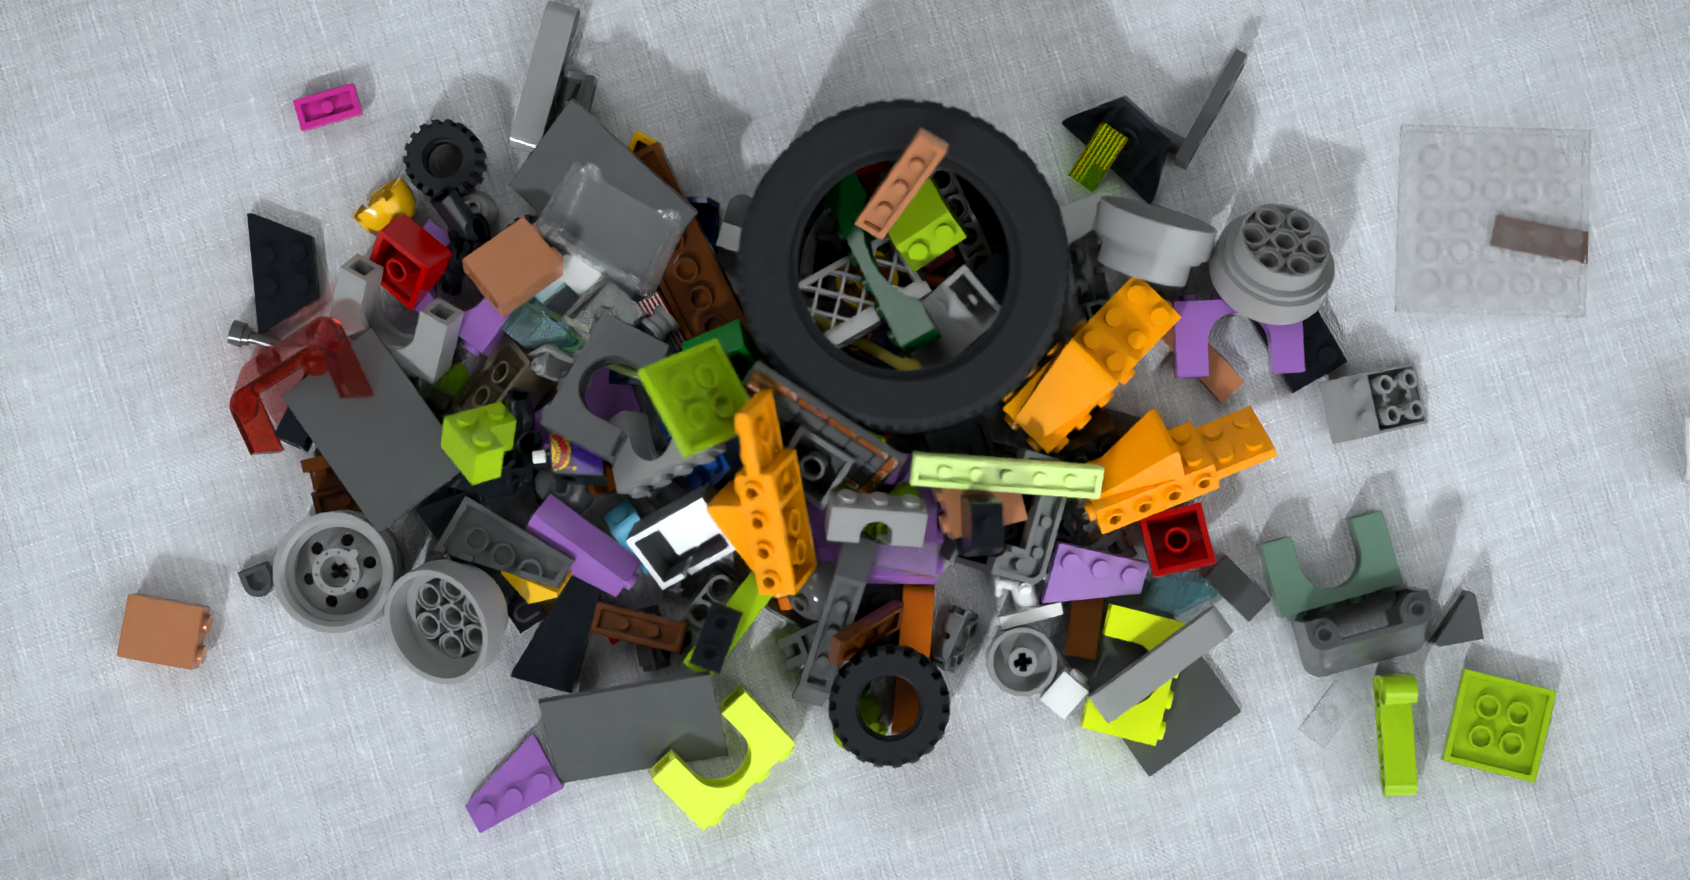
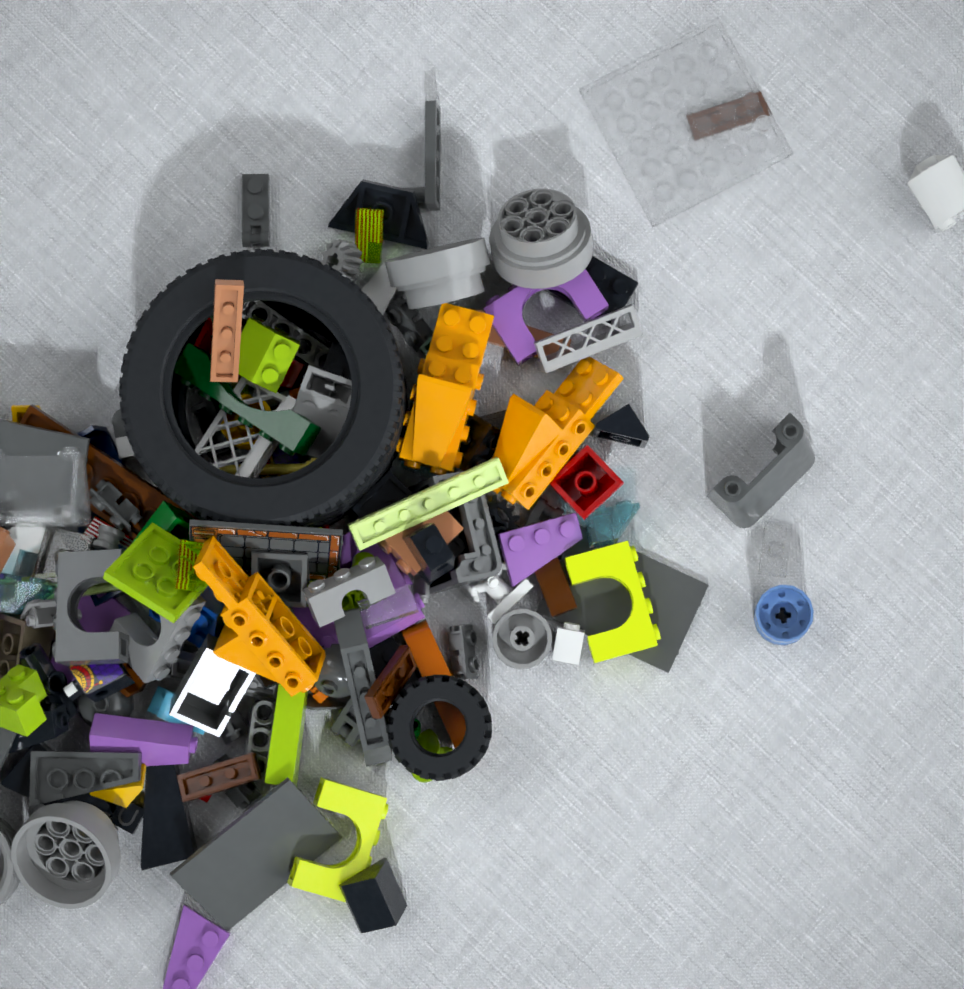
camera: 25 degrees left, 5 degrees down
(686, 306) = (120, 514): none -> dark grey hinge
(716, 637) = (278, 748): black brick -> none
(727, 835) = (374, 897): none -> black slope
(731, 400) = (185, 573): none -> clear neon green tile
(997, 62) = (255, 209): none -> dark grey plate
(1058, 166) = (343, 257): none -> light grey gear
(1160, 664) = (625, 581): light grey beam -> none
(1237, 588) = (653, 495): dark grey tile -> none
(1248, 505) = (622, 427): none -> black slope
(1262, 400) = (589, 345): none -> fence
(1316, 778) = (794, 603): none -> medium blue wheel
(1373, 403) = (675, 301): light grey slope -> none
(1373, 570) = (746, 424): sand green arch -> none
(1395, 732) = (832, 535): lime beam -> none
(1460, 623) = (832, 426): dark grey slope -> none
(1498, 725) = (904, 486): lime plate -> none

